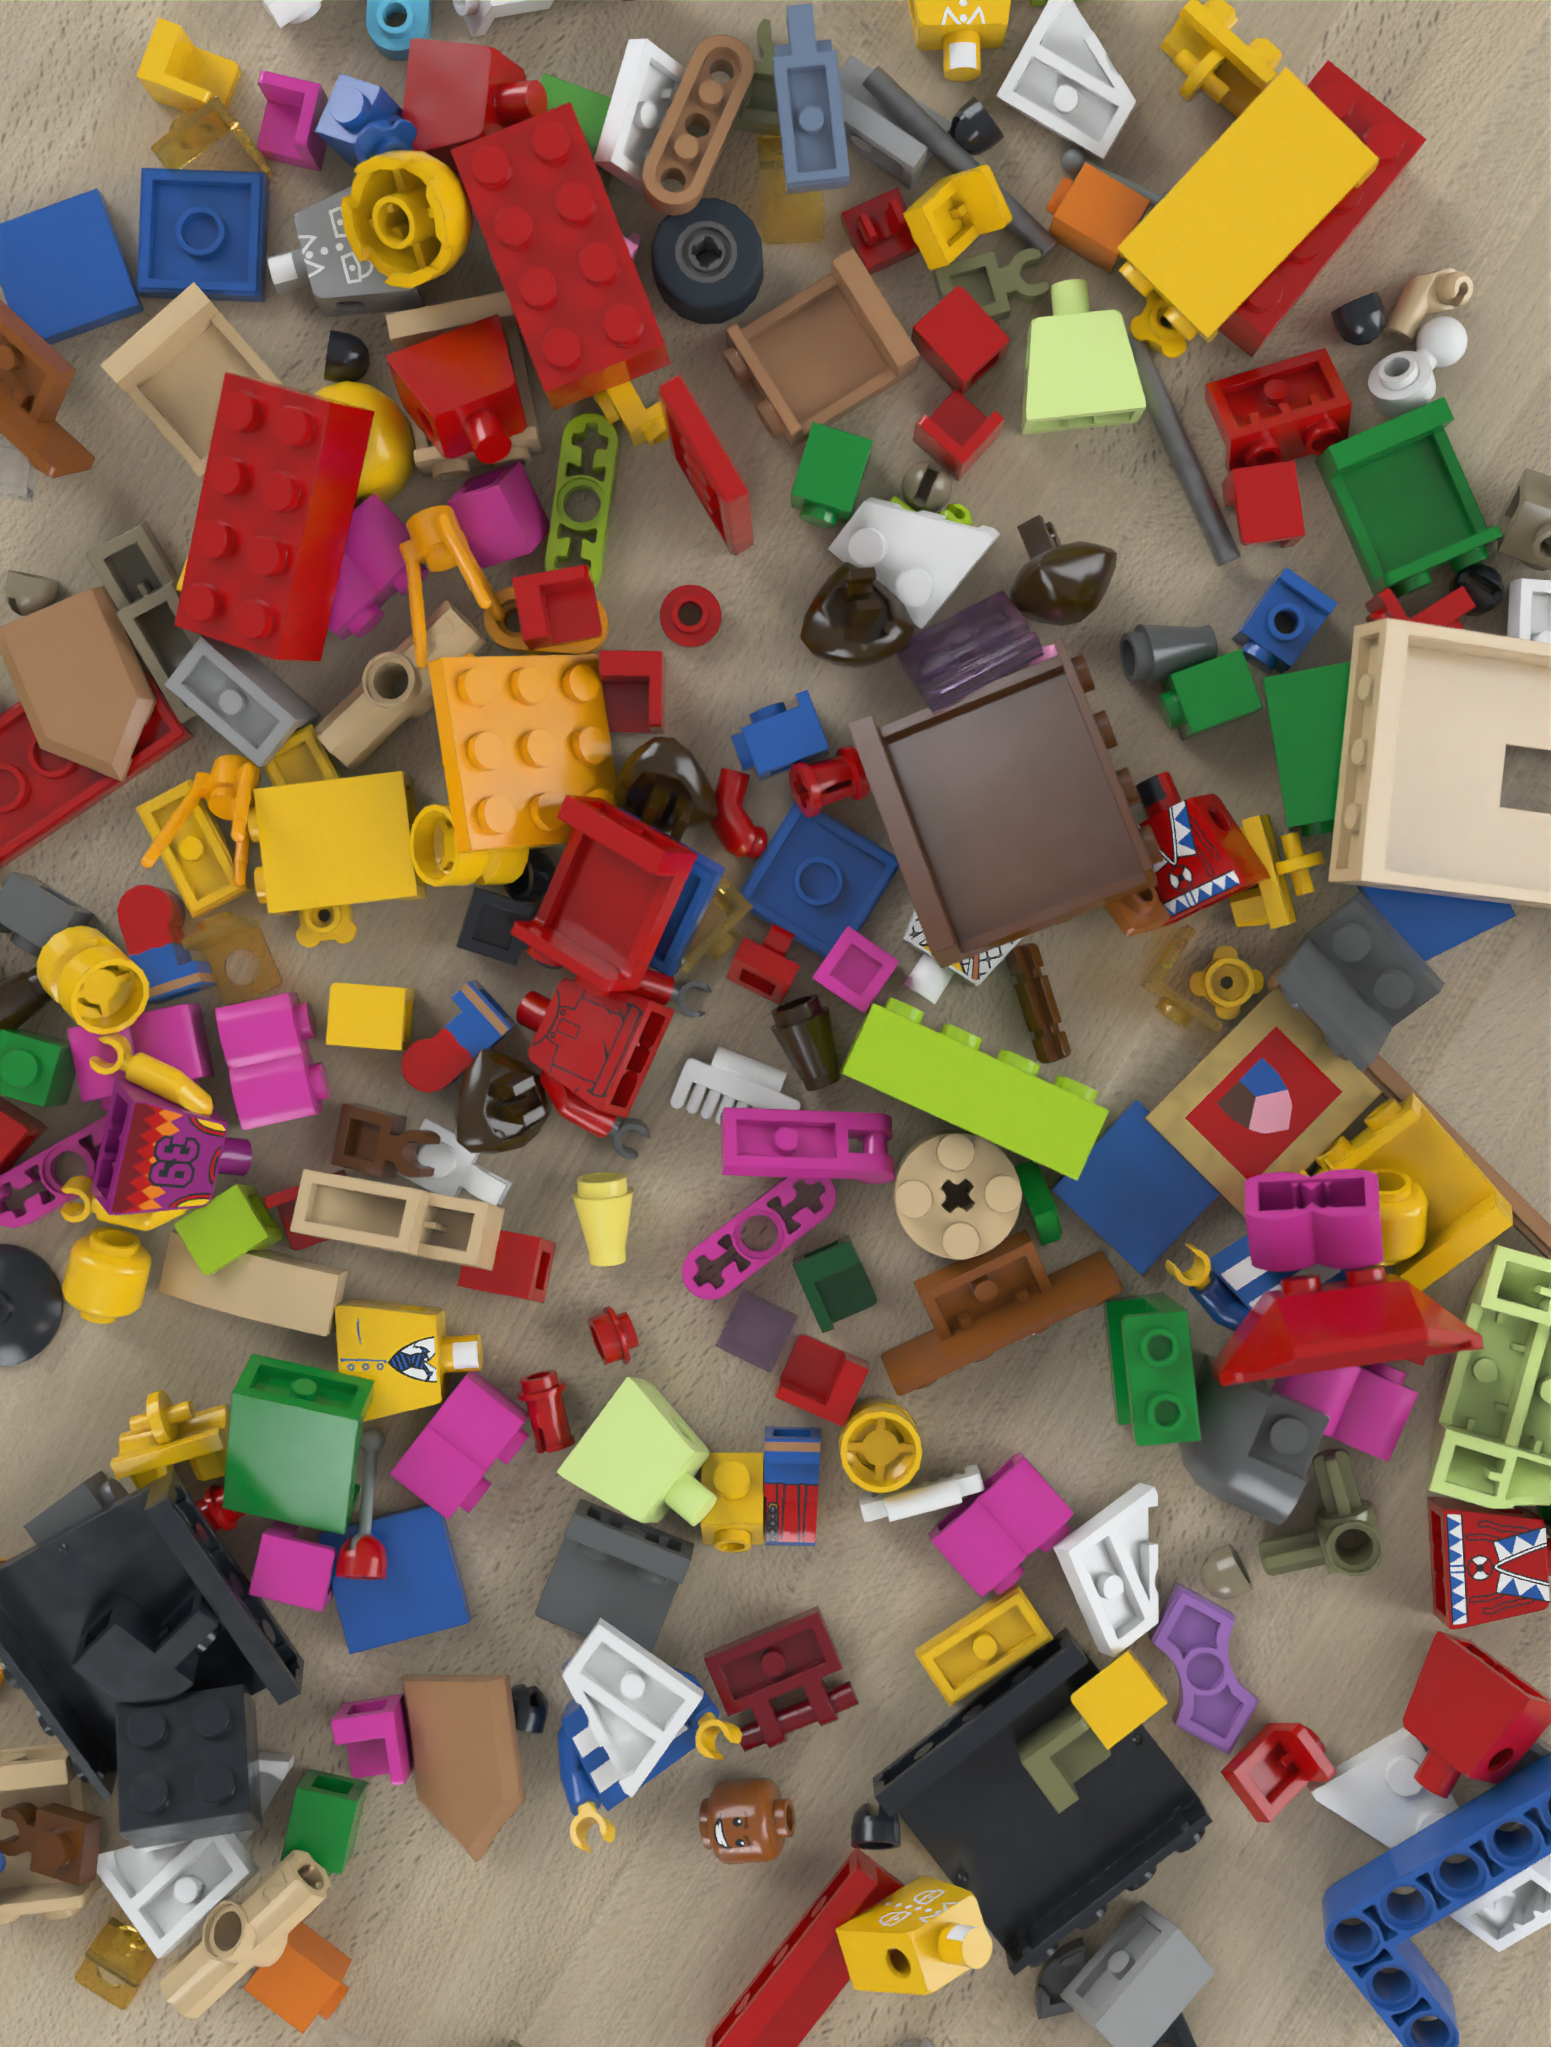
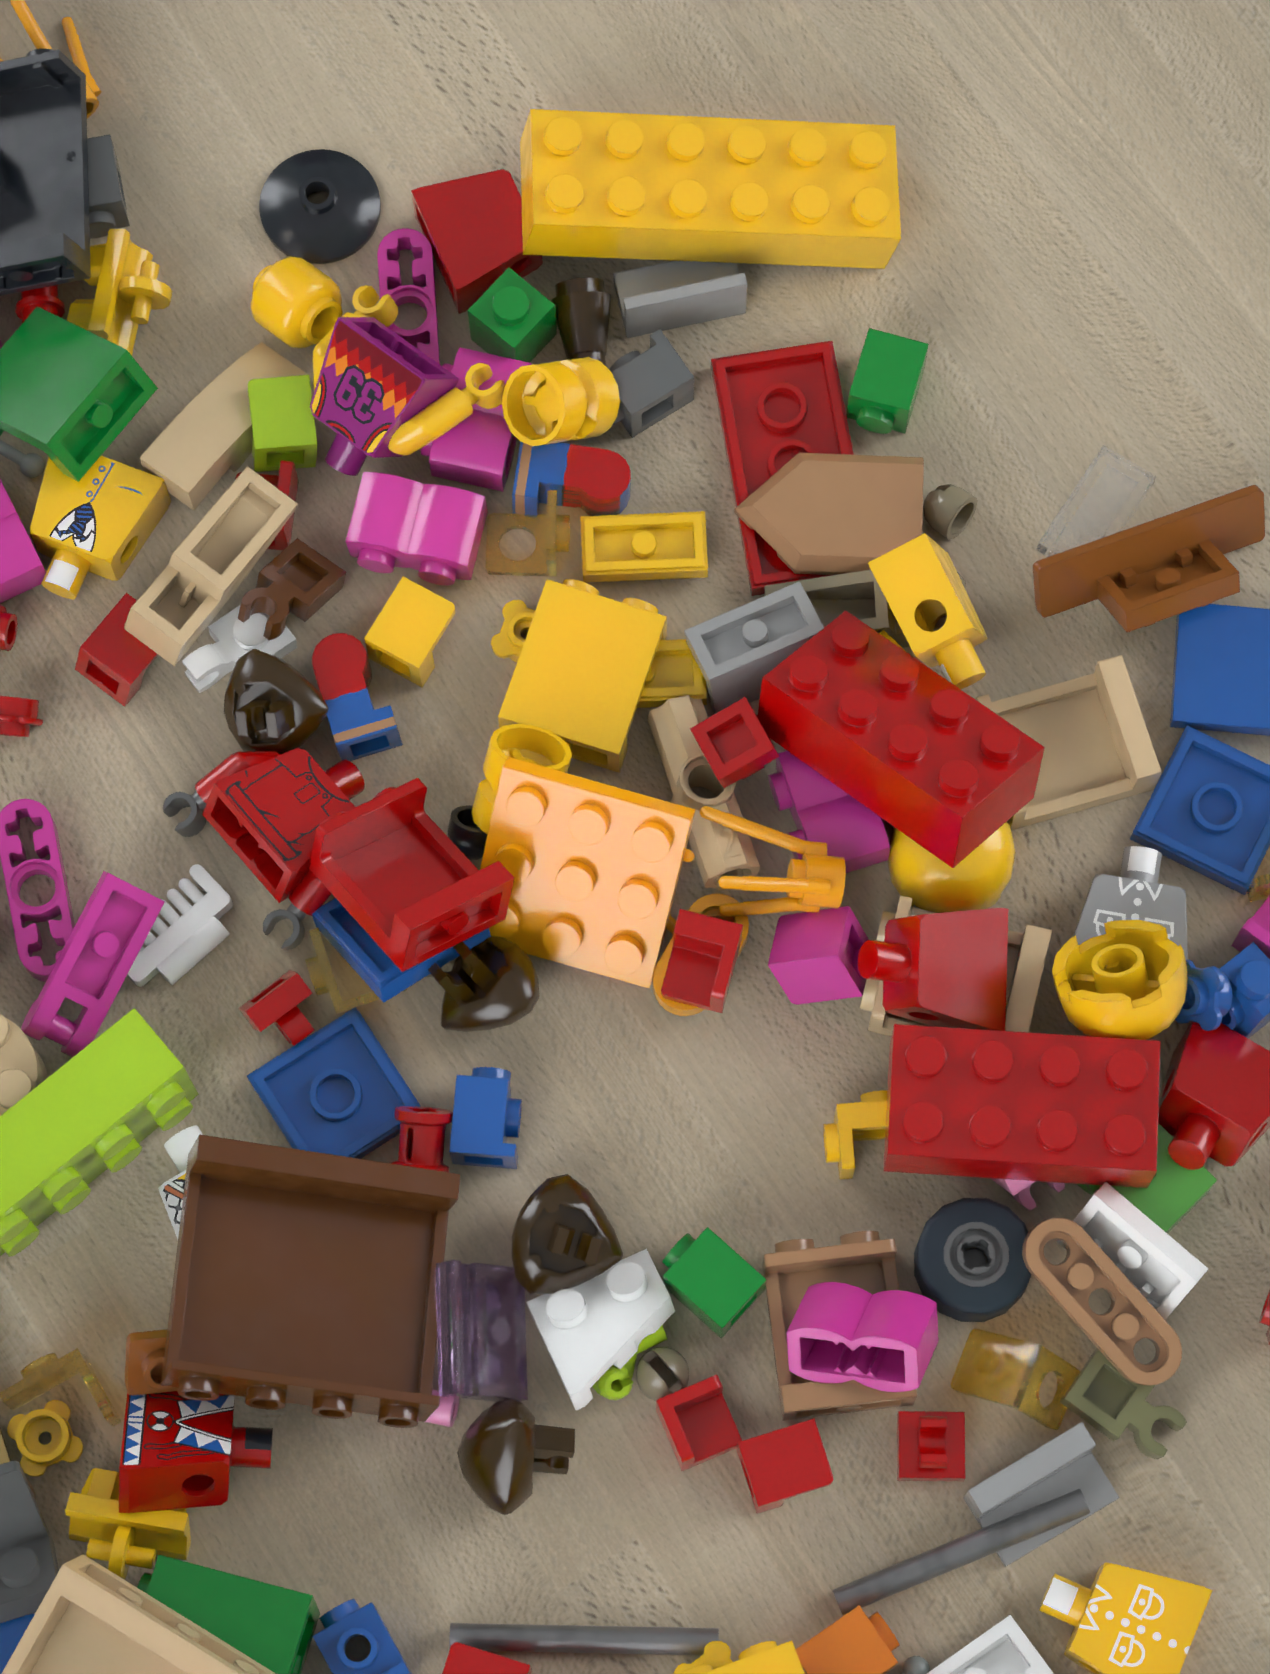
camera: 110 degrees right, 15 degrees down
(121, 560) = (922, 589): none -> yellow torso
(228, 797) = (674, 596): light orange plant -> none
(344, 667) = (734, 742): none -> red tile
(345, 358) = (1037, 884): black hinge -> none
(489, 926) = (445, 774): black plate -> none
(604, 1215) = (128, 757): light yellow cone -> none
(605, 463) = (845, 1053): lime beam -> none
(634, 690) = (597, 1006): red panel -> none
(694, 635) = (643, 1110): red plate -> none
(706, 466) = (754, 1141): red tile -> none
(732, 823) = (428, 1039): red arm -> none
(807, 1040) = (192, 1014): dark brown cone -> none
(809, 108) = (1066, 1409): sand blue hinge -> none
(824, 313) = (863, 1337): none -> dark pink brick
(855, 970) = (229, 1081): dark pink panel -> none
(955, 214) = (907, 1512): yellow bracket -> none
(975, 128) = (989, 1583): black hinge -> none
(990, 284) = (829, 1516): olive plate -> none
(1038, 1003) = (115, 1247): reddish brown axle -> none
(1078, 367) = (707, 1569): yellowish green torso -> none
(1160, 650) = (390, 1528): dark grey cone -> none
(1209, 695) = (326, 1546): green brick -> none

